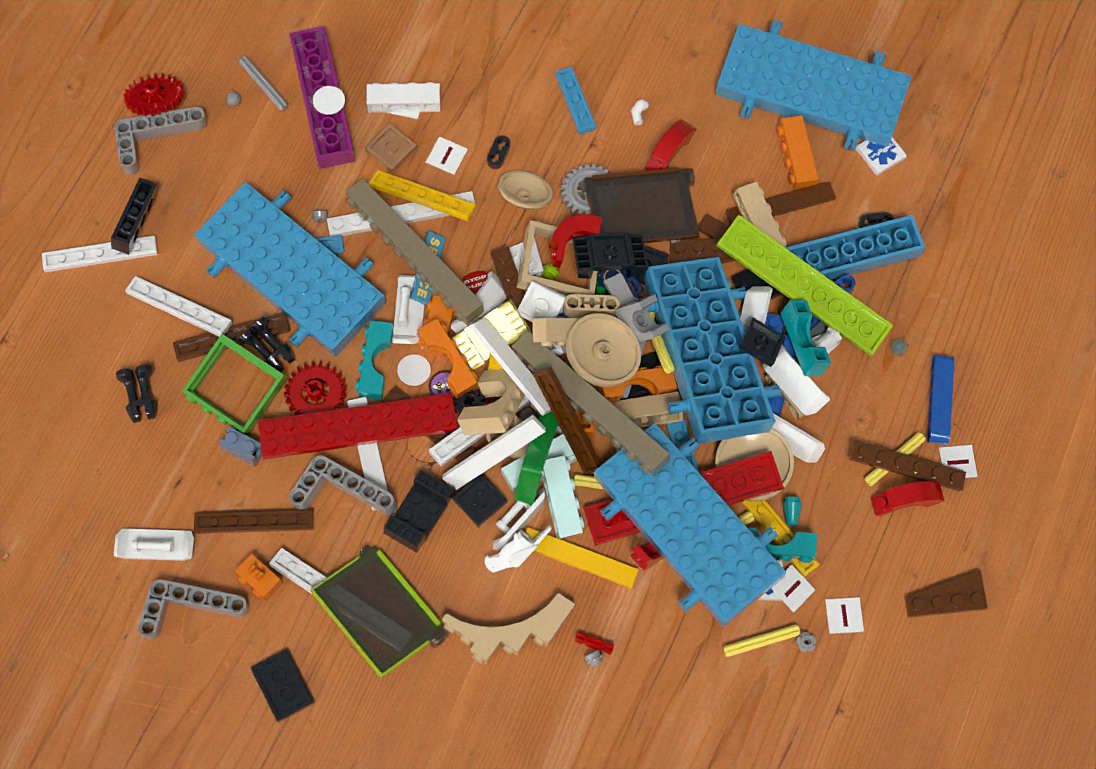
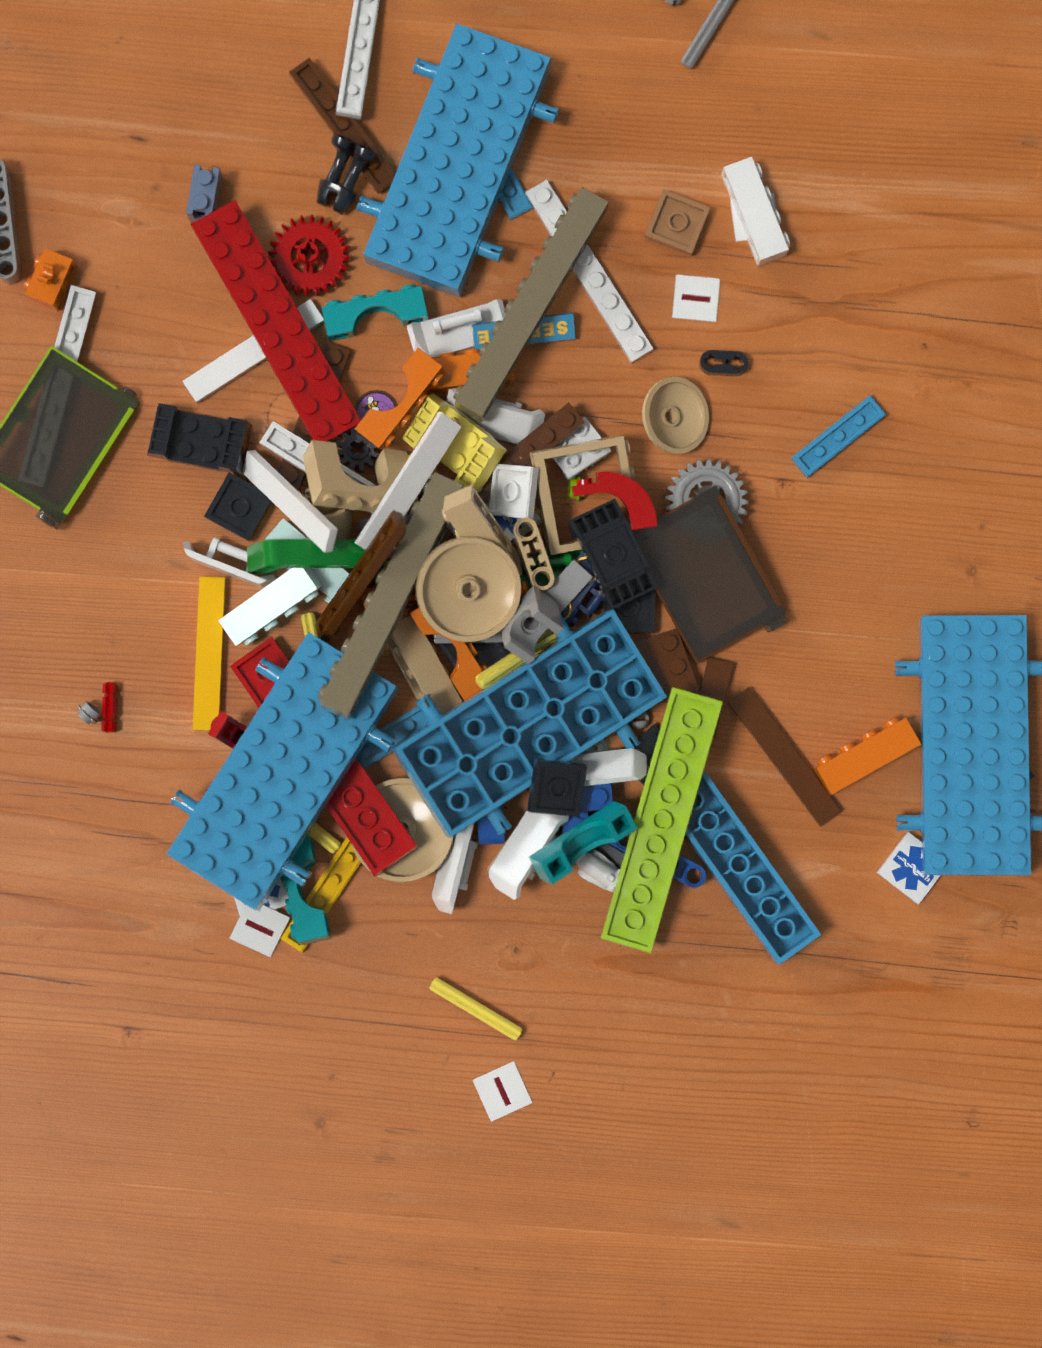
camera: 70 degrees right, 15 degrees up
(127, 377) = (210, 46): black piece -> none
(154, 544) = (51, 141): white piece -> none
(205, 367) = (316, 162): bright green window -> none
(253, 521) = (120, 247): reddish brown tile -> none
(316, 71) = (713, 105): magenta brick -> none
(322, 214) = (549, 169): light grey hinge -> none
(328, 100) = (706, 116): white sticker -> none
(343, 483) = (198, 334): light grey beam -> none
(413, 370) = (383, 365): white sticker -> none
(422, 195) = (620, 288): yellow tile -> none
(475, 280) = (526, 396): red sticker -> none
(513, 637) = (66, 577): tan arch -> none
(514, 552) = (184, 573): white animal -> none
(636, 111) = (852, 522): white arm -> none
(672, 141) = (812, 583): red arch -> none
(758, 212) = (745, 733): tan brick -> none
(761, 640) = (181, 909): light yellow axle -> none
(792, 510) = (360, 897): teal cone -> none
(801, 642) = (203, 962): light grey plate -> none
(844, 615) = (249, 1002): white sticker -> none
(875, 218) = (809, 888): black beam -> none
(899, 347) = (632, 971): clear light blue plate -> none
(907, 465) = (468, 1027): reddish brown plate -> none
(908, 495) = (424, 1040): red arch -> none
(940, 399) = (577, 1045): blue beam -> none
(953, 596) = (319, 1133): reddish brown wing -> none

